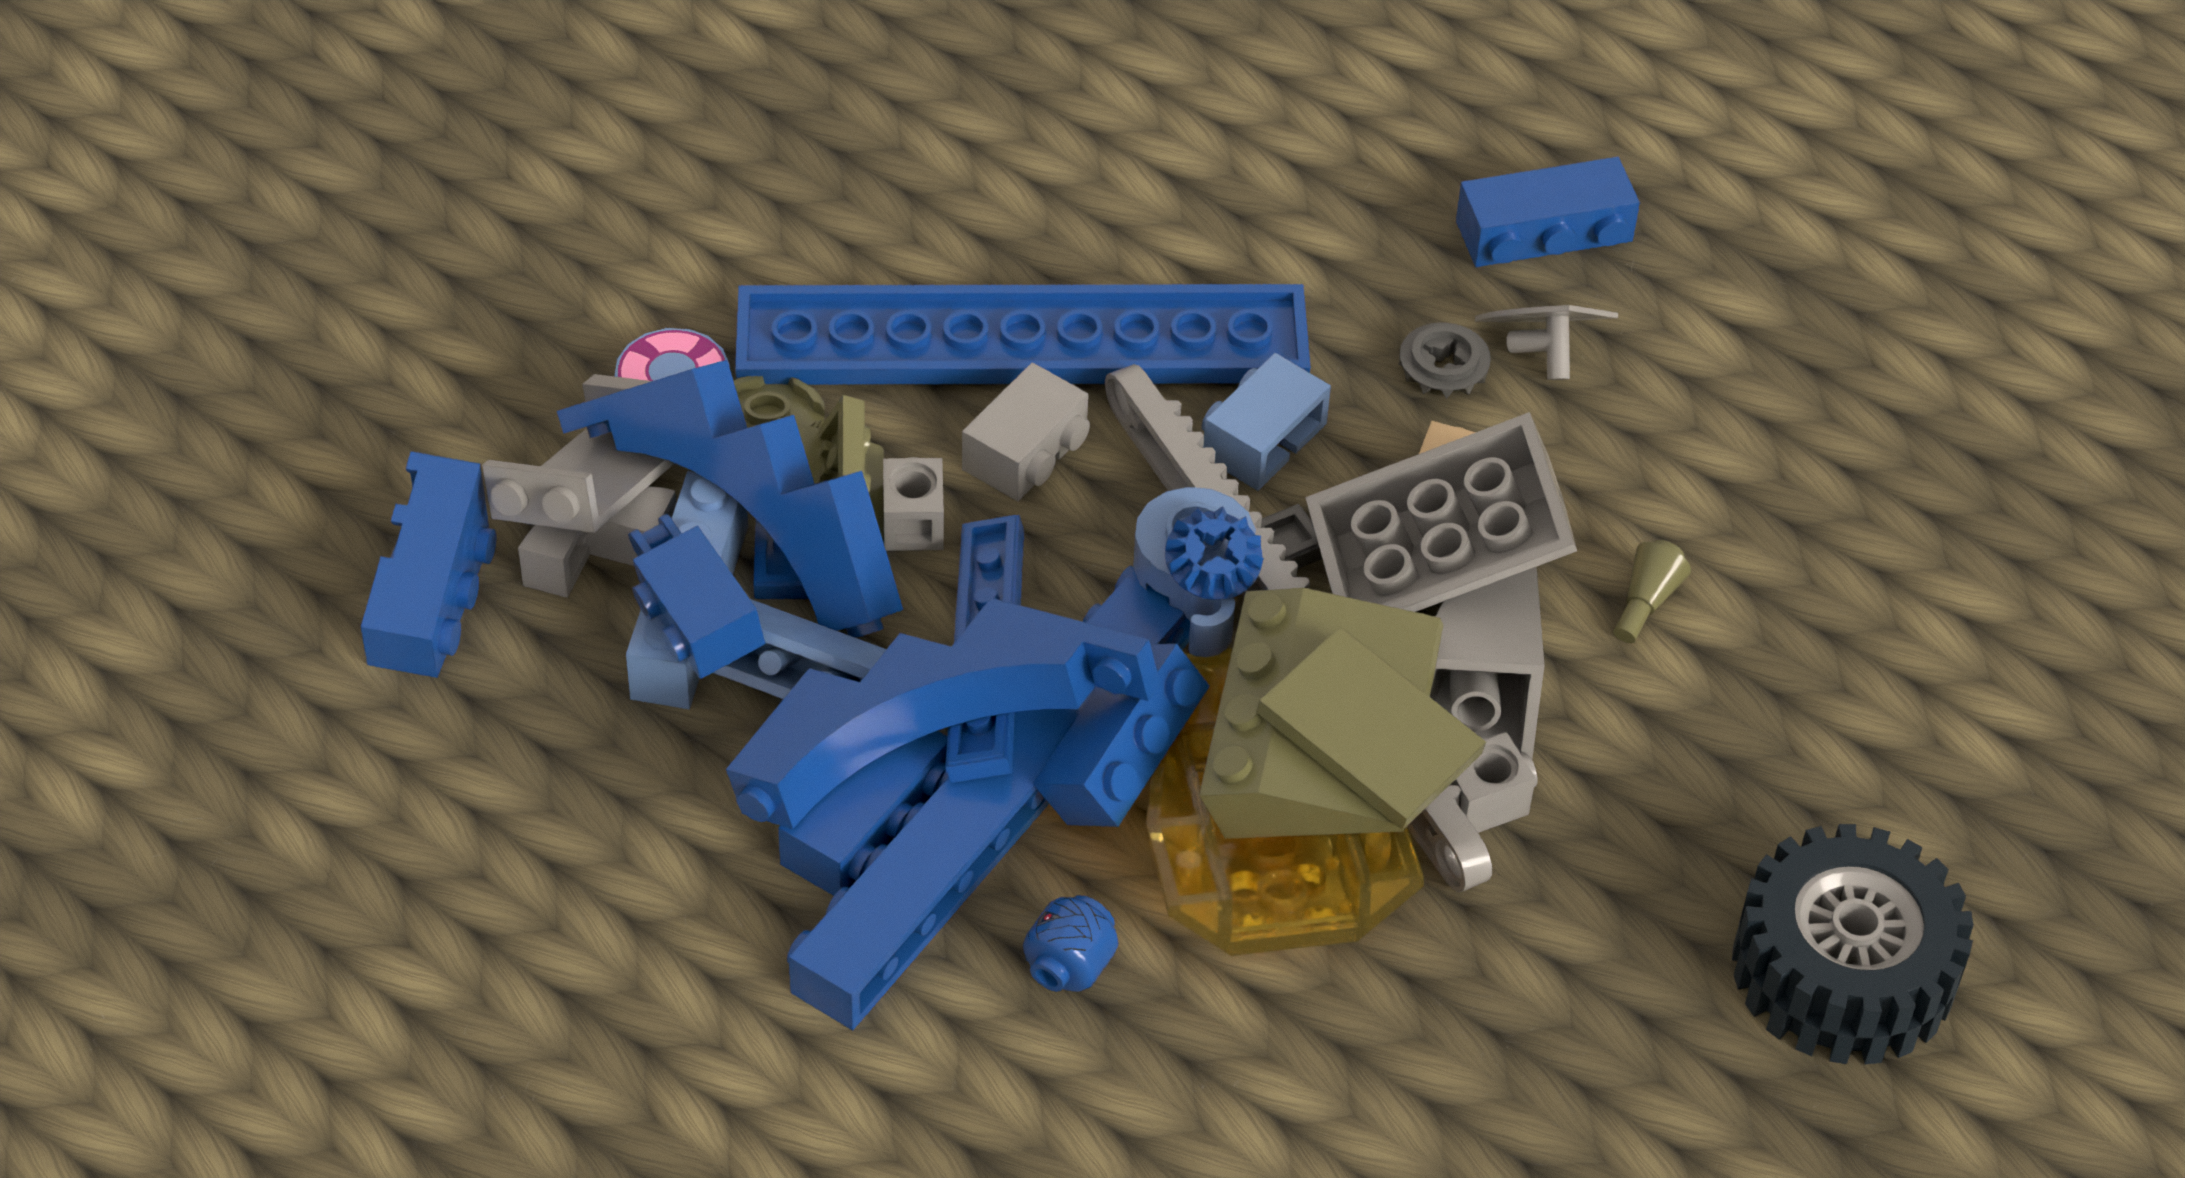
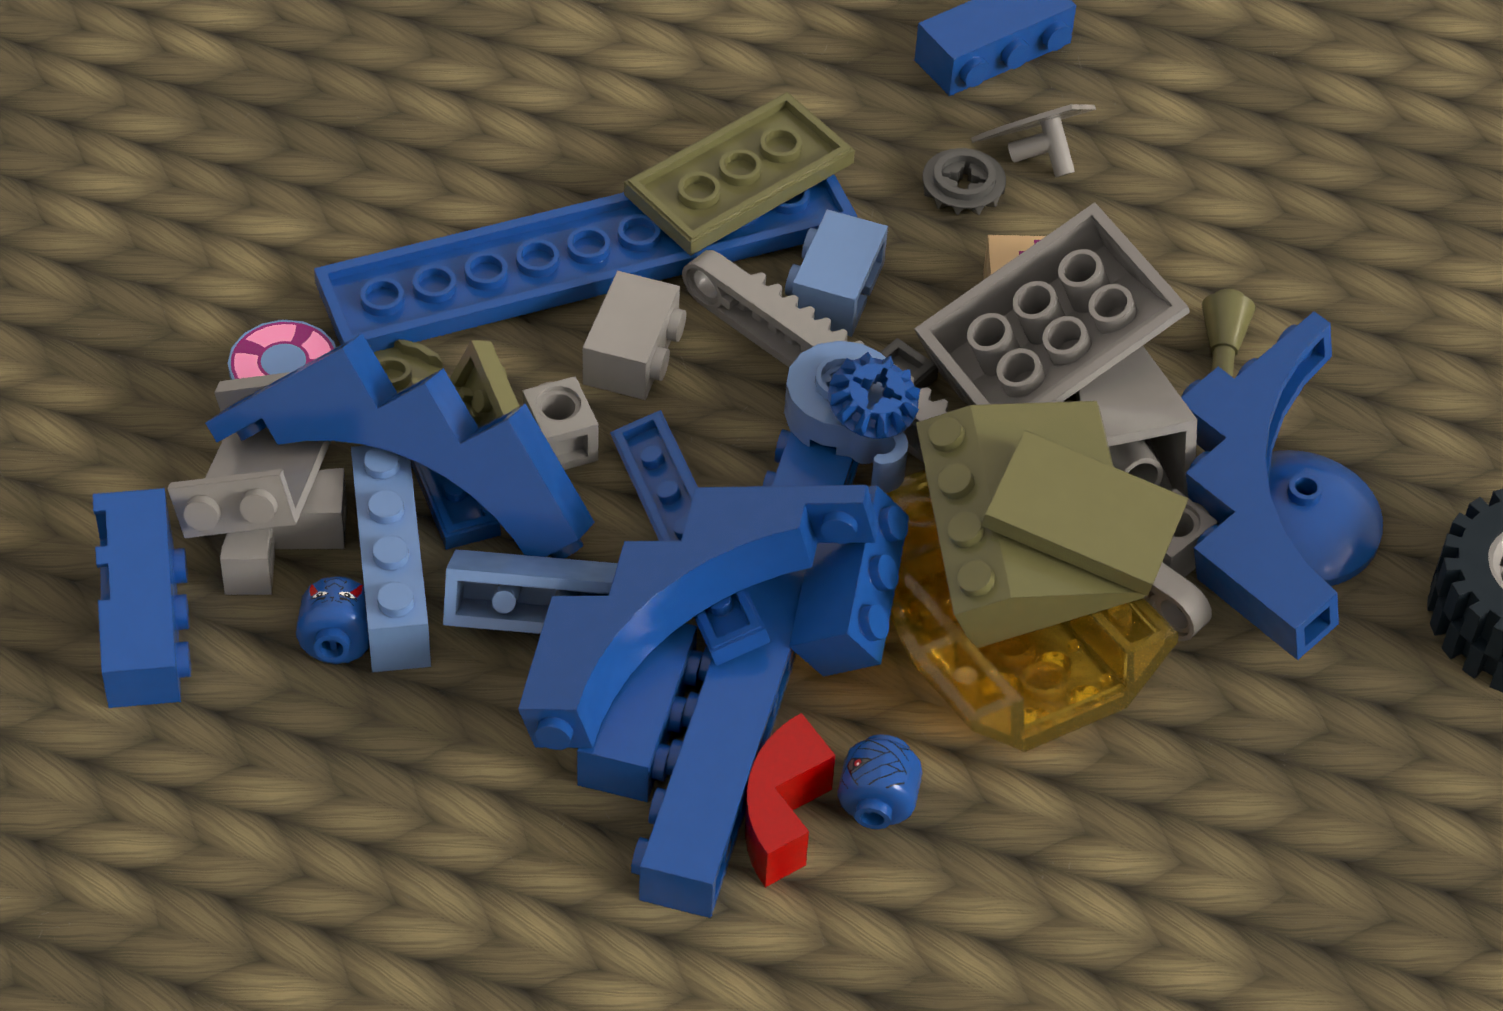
camera: 20 degrees left, 0 degrees up
(601, 637) = (333, 618): none -> blue head
(694, 597) = (419, 557): blue brick -> none
(973, 913) = (786, 774): none -> red brick
(1205, 293) = (738, 173): none -> olive tile
(1601, 689) = (1248, 552): none -> blue arch
(1637, 821) = (1326, 513): none -> blue dish

